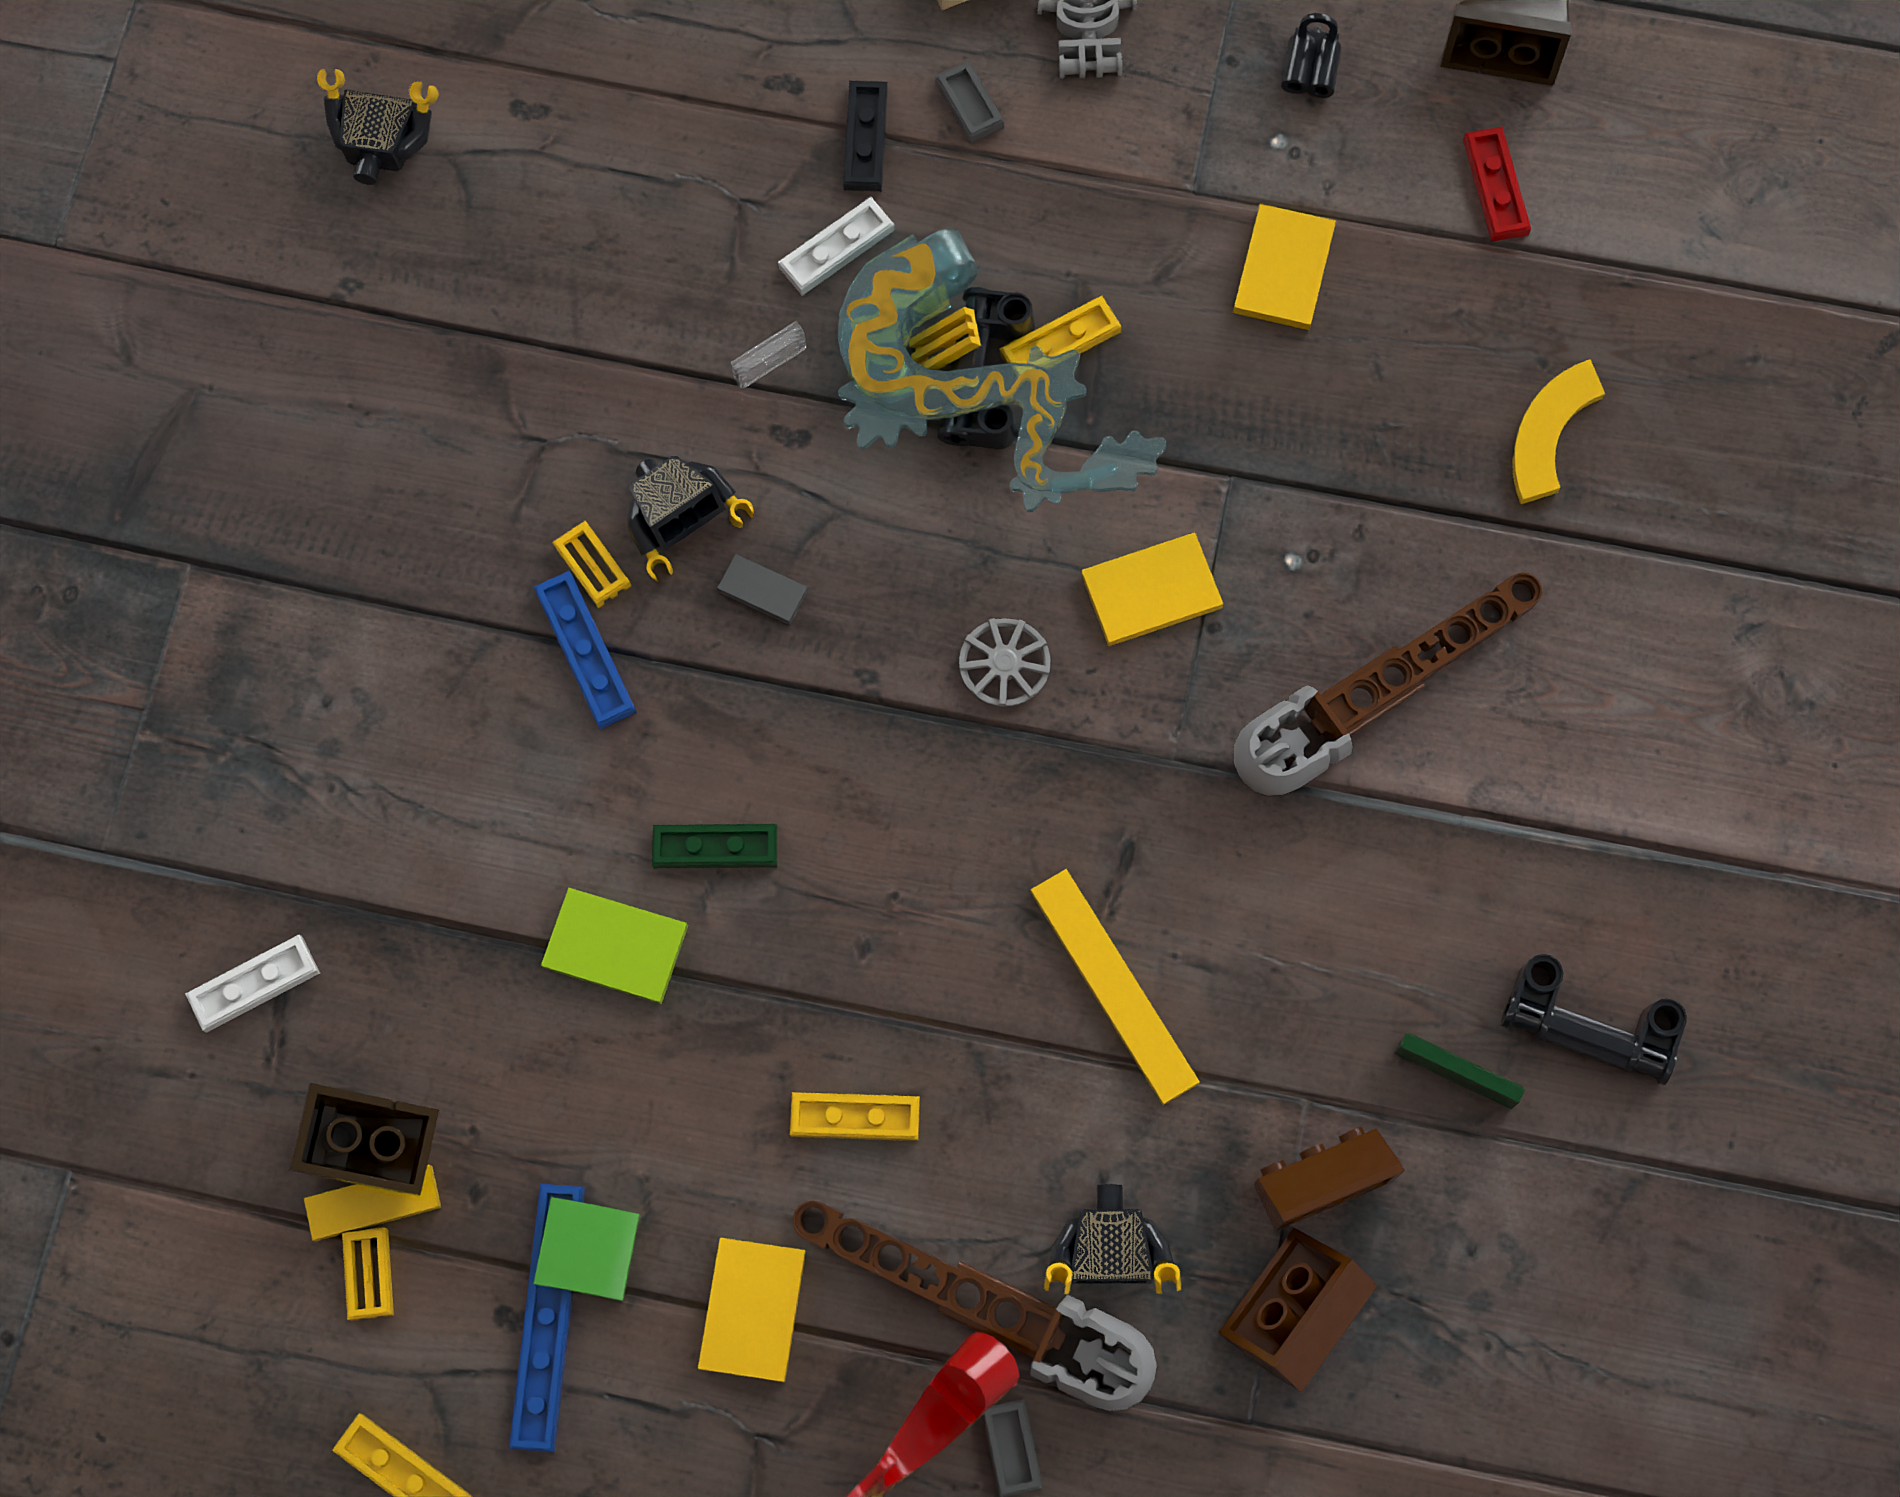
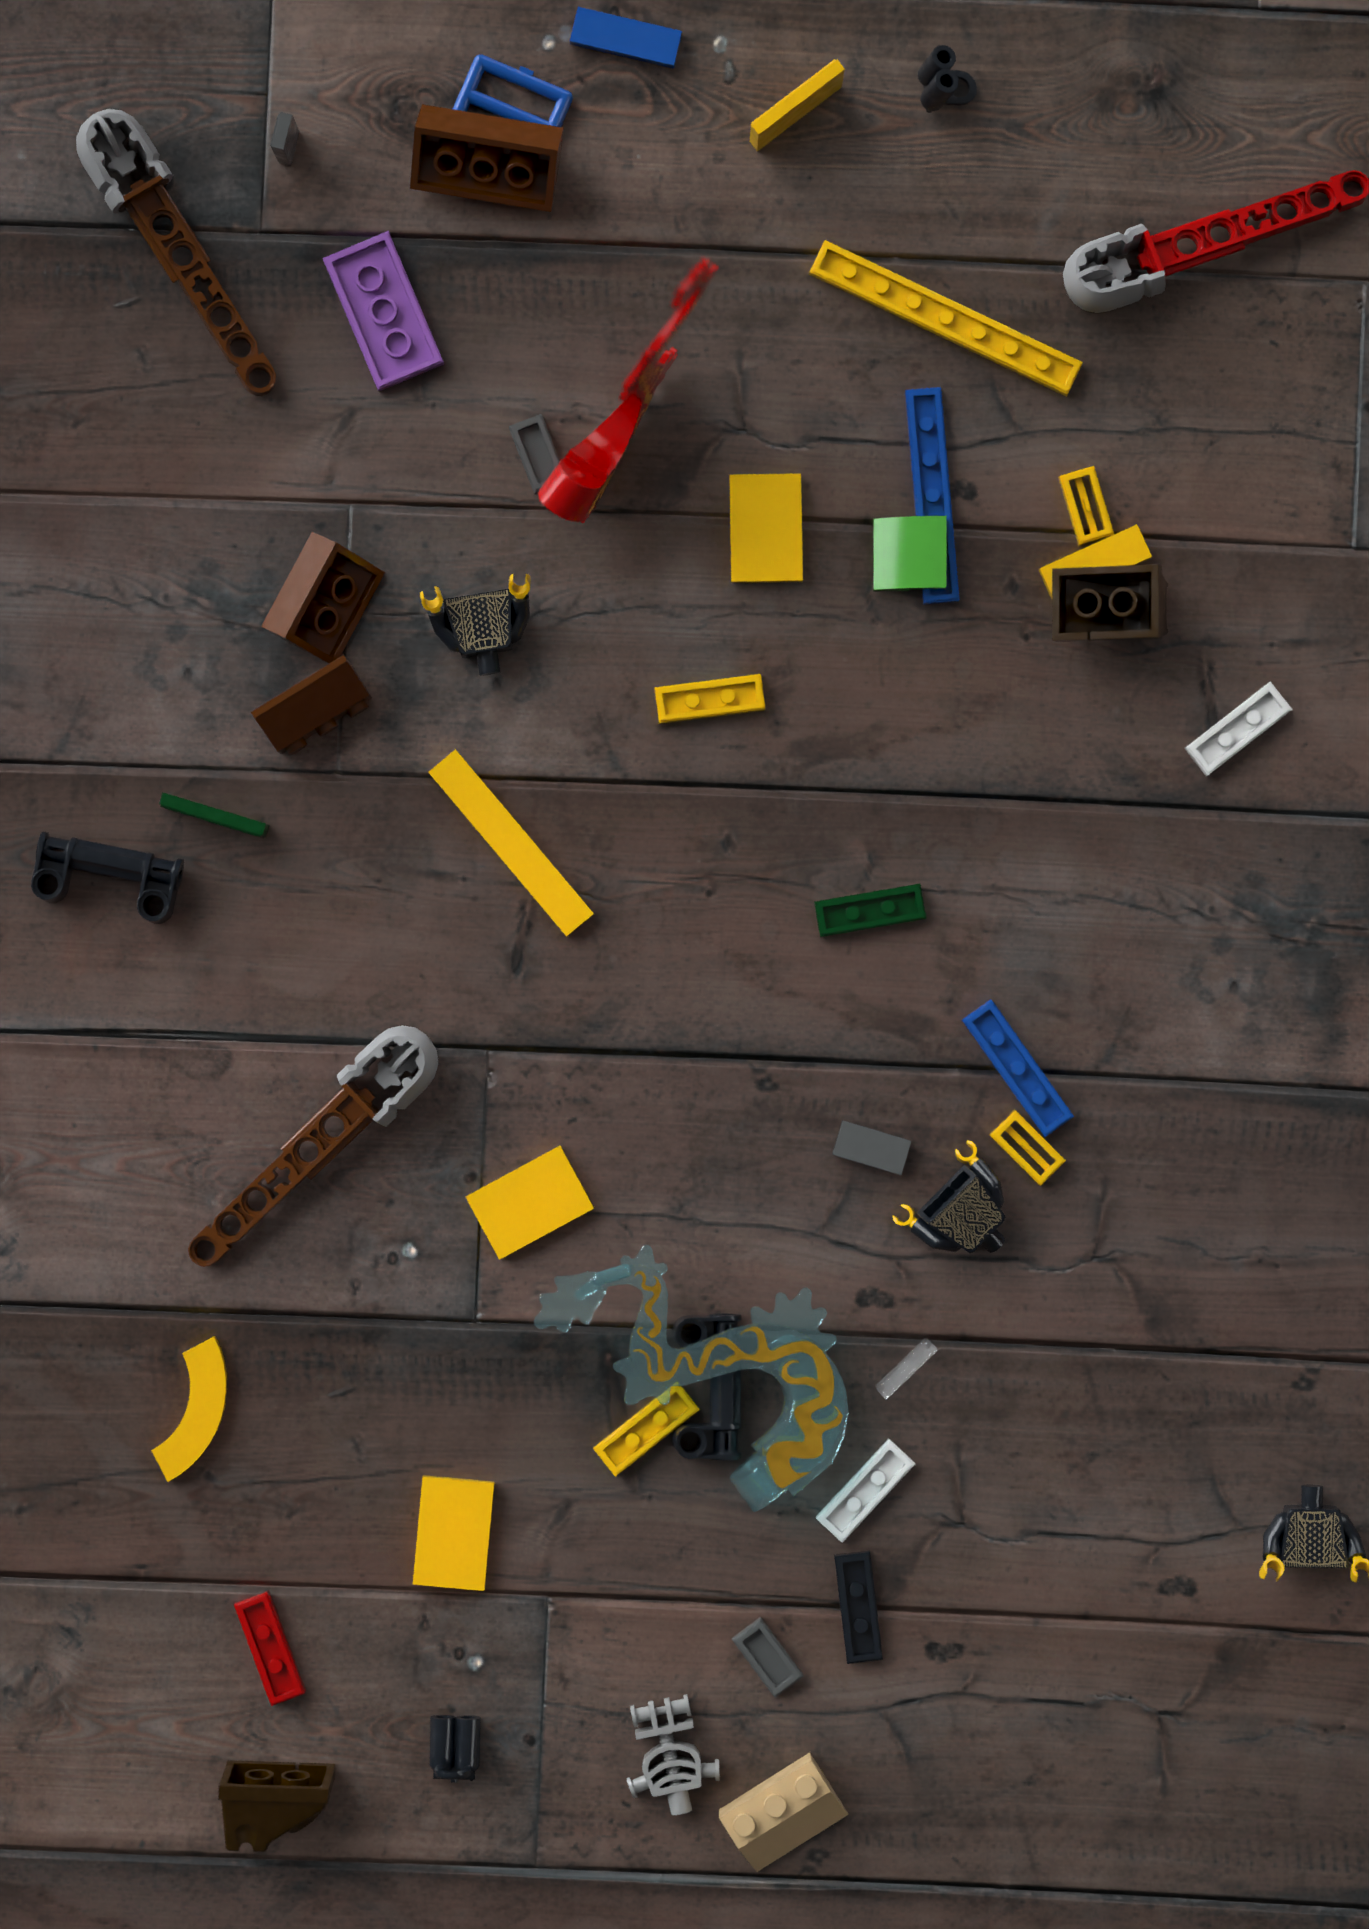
camera: 170 degrees right, 15 degrees up
(614, 945) = (938, 809): lime tile -> none
(944, 335) = (768, 1393): yellow tile -> none
(1004, 661) = (648, 1114): light grey wheel -> none
(1038, 1322) = (454, 523): piece -> none

